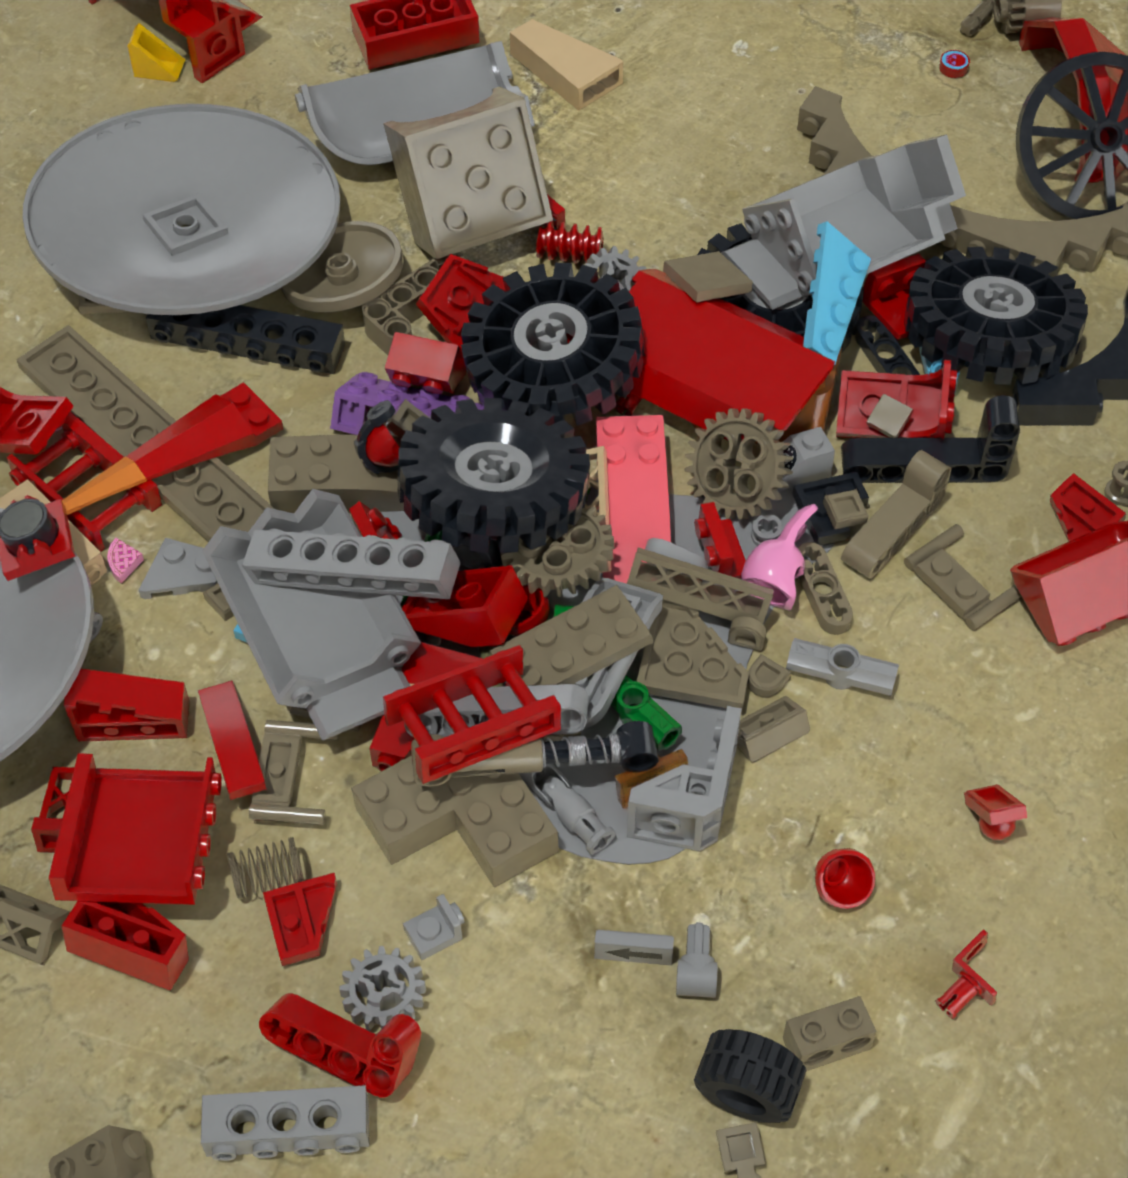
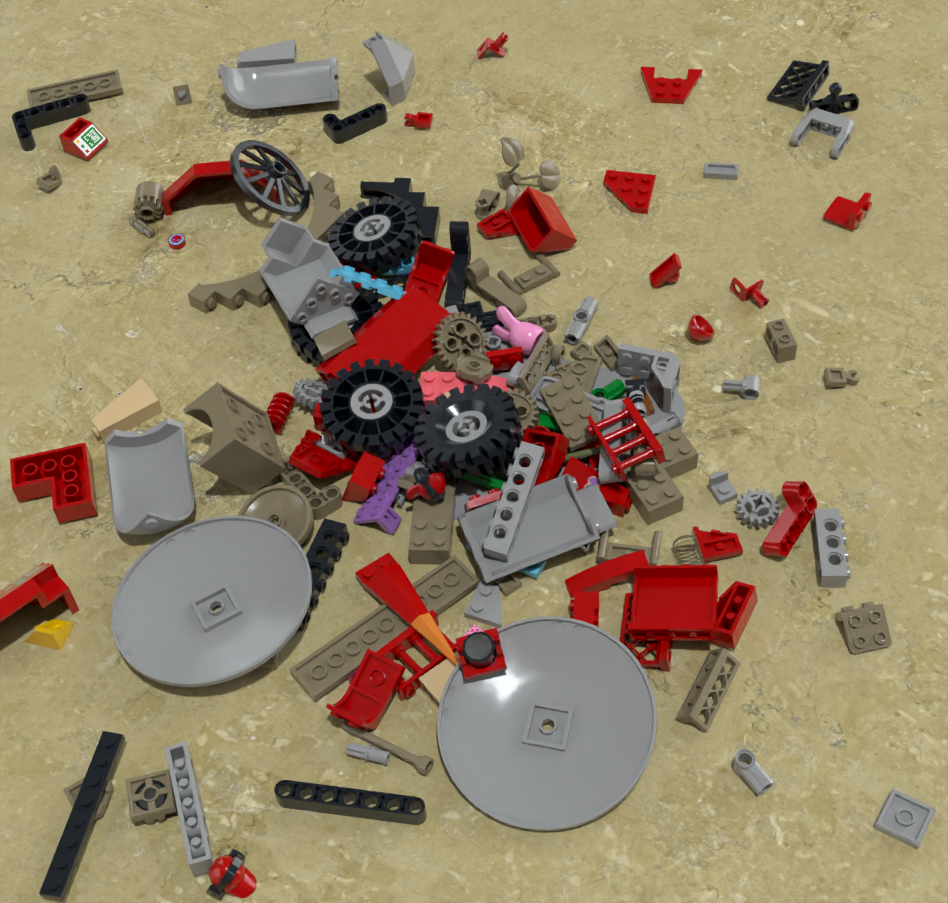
camera: 80 degrees left, 5 degrees down
(633, 947) = (735, 409): light grey tile -> none
(666, 504) = (466, 368): none -> dark tan plate
(750, 1076) = (807, 362): black tyre -> none
(845, 509) = (488, 307): dark tan tile -> none
(889, 416) = (434, 284): dark tan tile -> none

